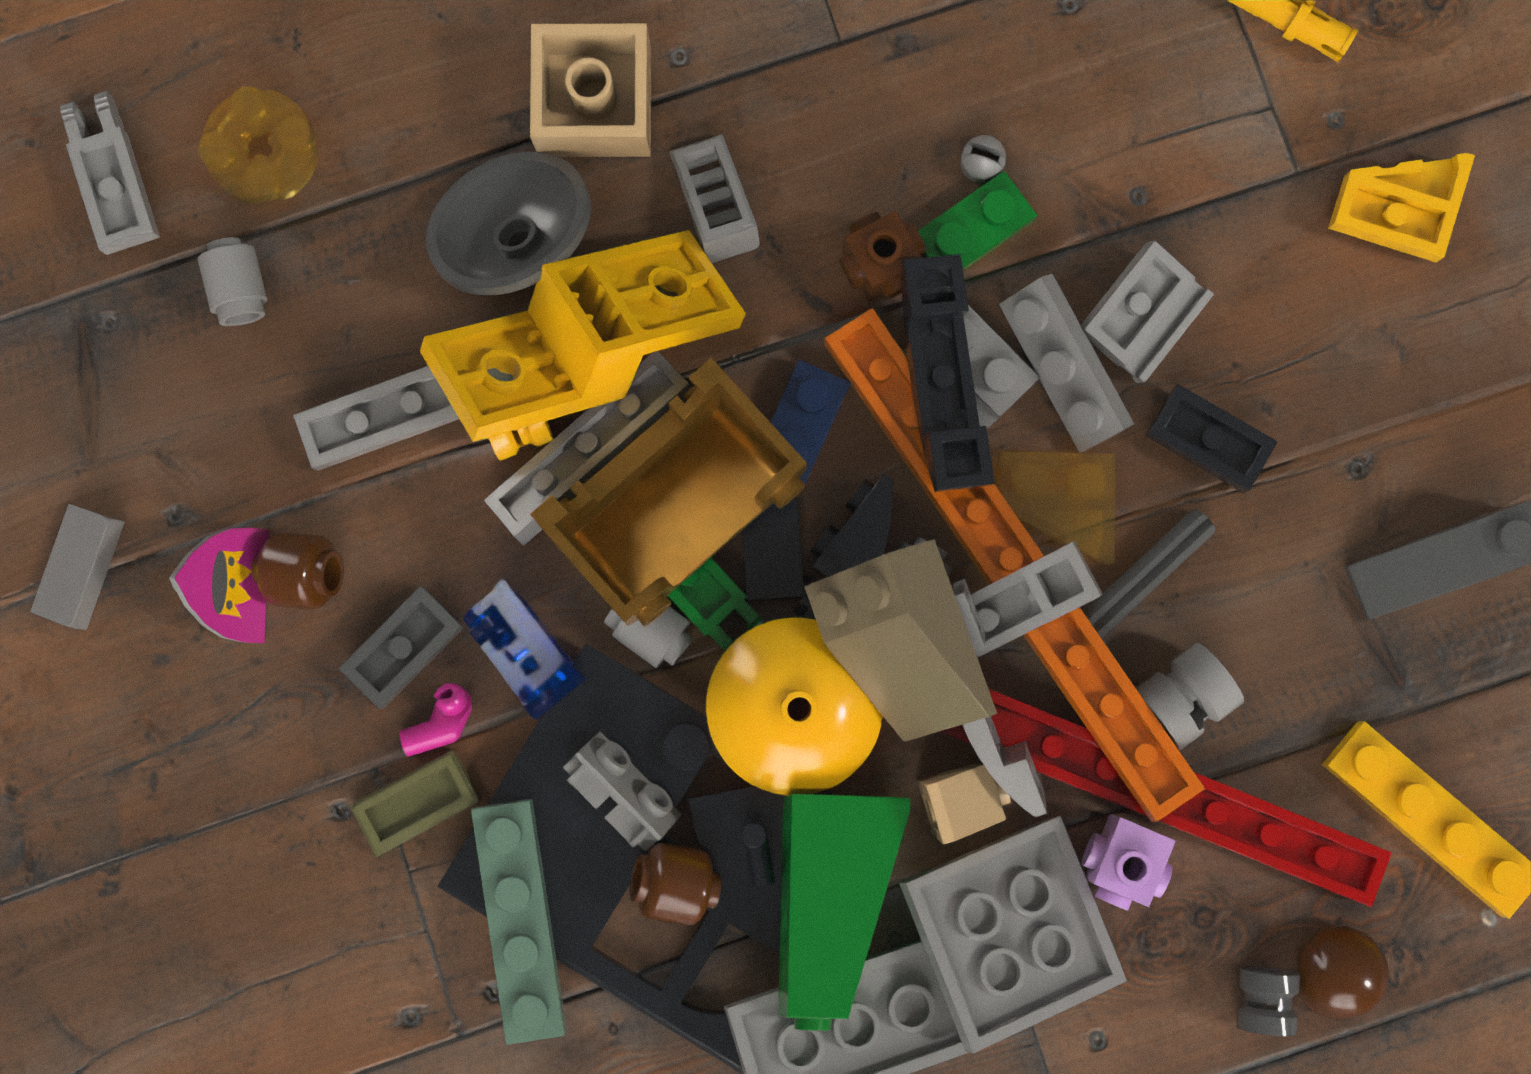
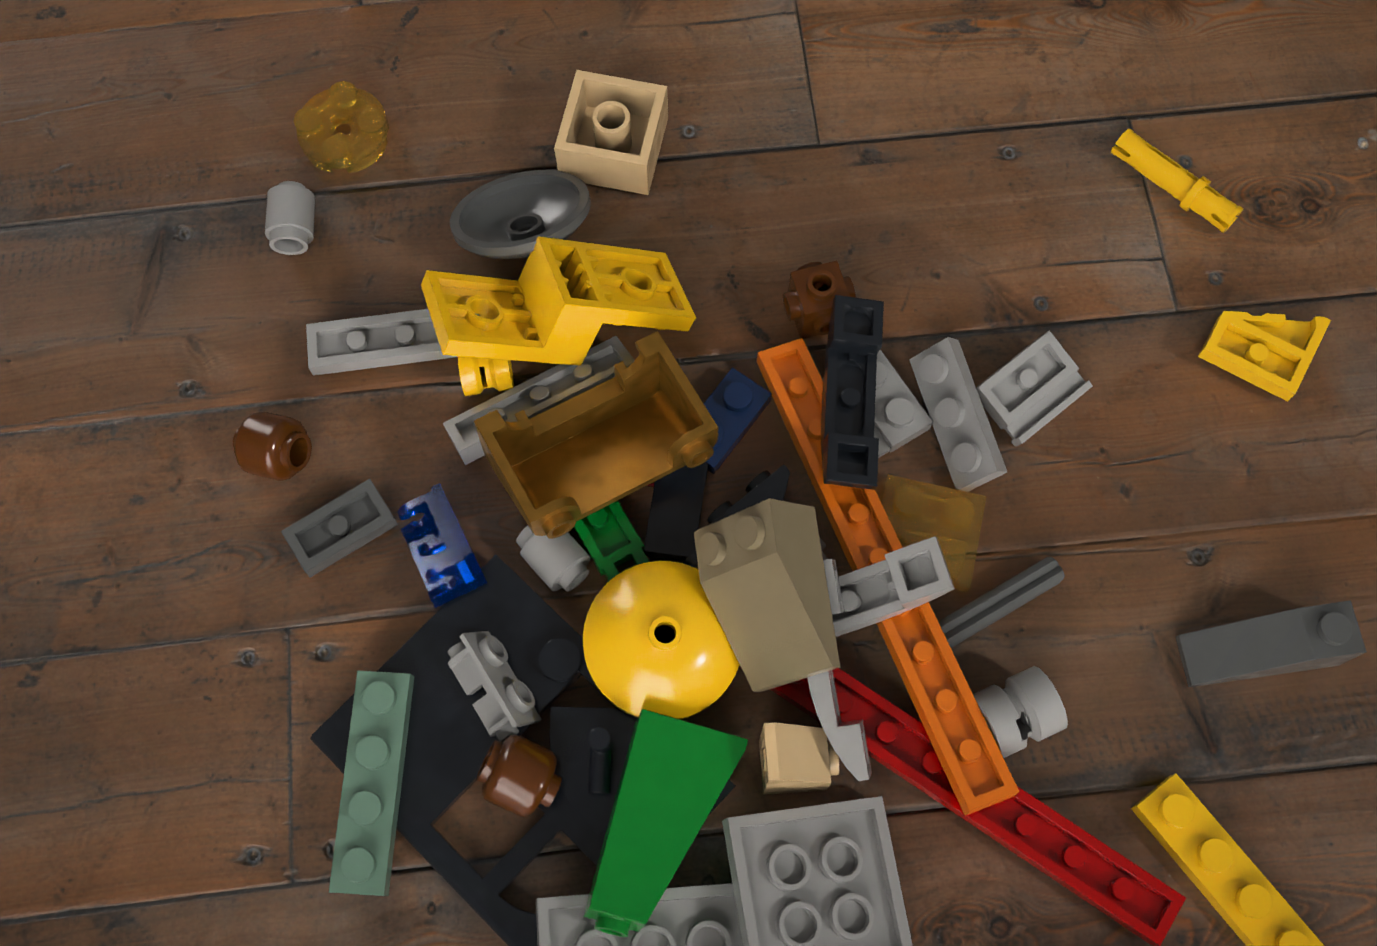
camera: 10 degrees right, 15 degrees down
(77, 567) = (95, 410): light grey slope -> none
(109, 178) = (219, 127): light grey hinge -> none
(219, 584) = (201, 440): dark pink shield -> none
(415, 803) = (312, 663): olive tile -> none
(444, 724) = (358, 601): dark pink arm -> none
(727, 231) = (692, 262): light grey slope -> none
(979, 222) = (909, 293): green plate -> none
(980, 168) = (913, 251): light grey hinge -> none
(1148, 869) = (954, 841): lavender brick -> none
(1211, 438) = (1072, 501): black plate -> none

